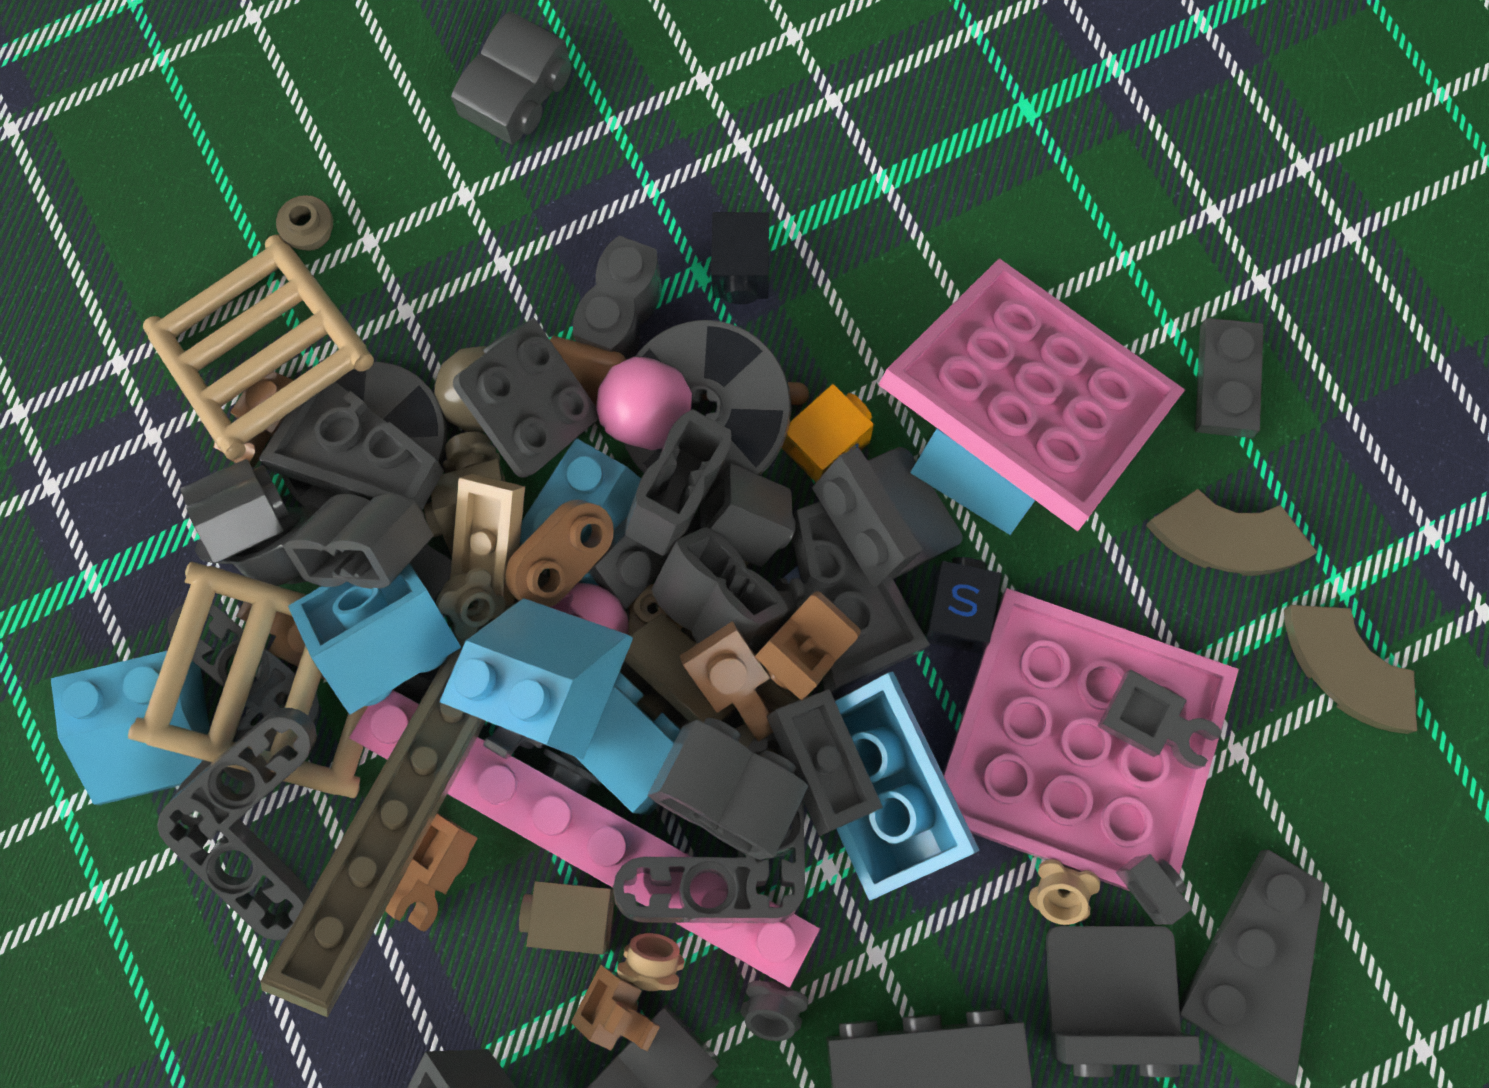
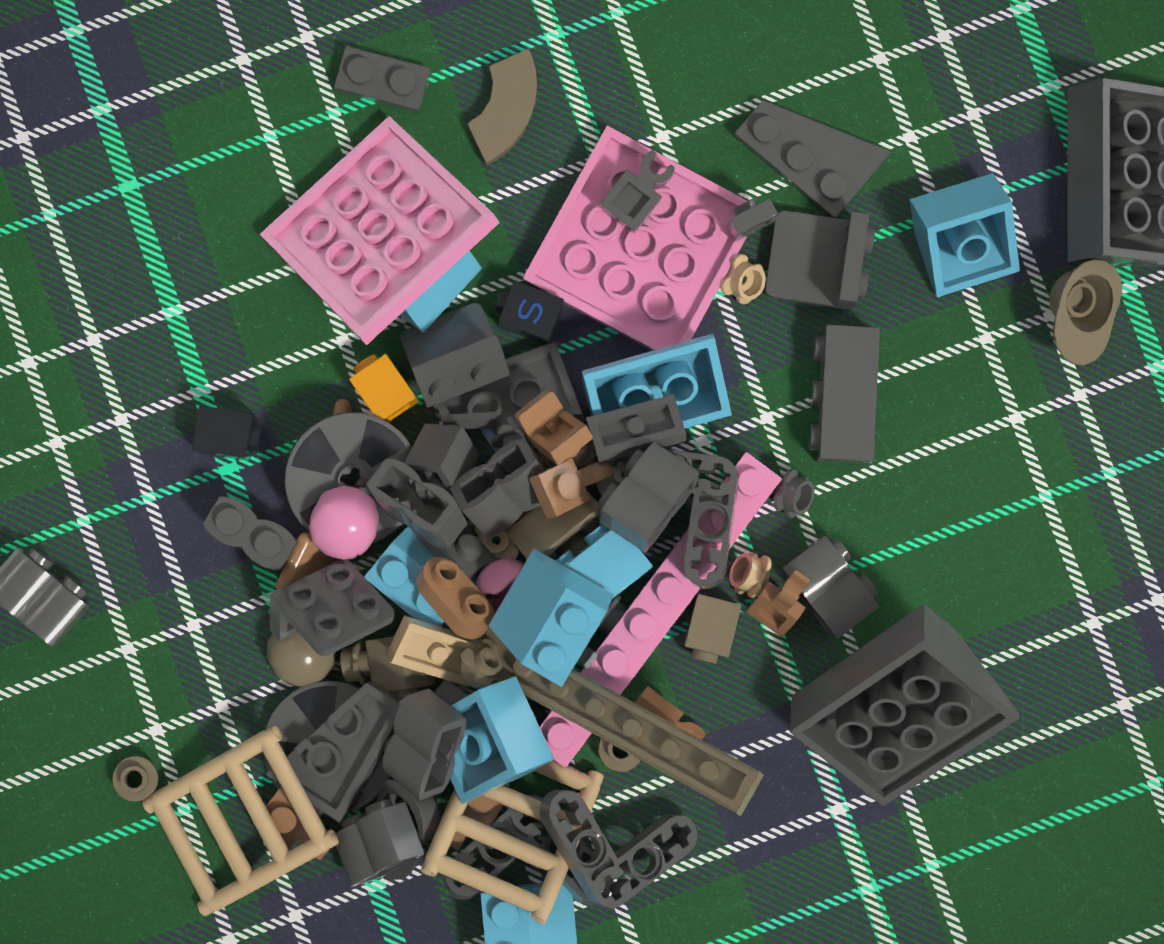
camera: 90 degrees left, 10 degrees up
(1348, 671) = (618, 46): dark tan tile -> none

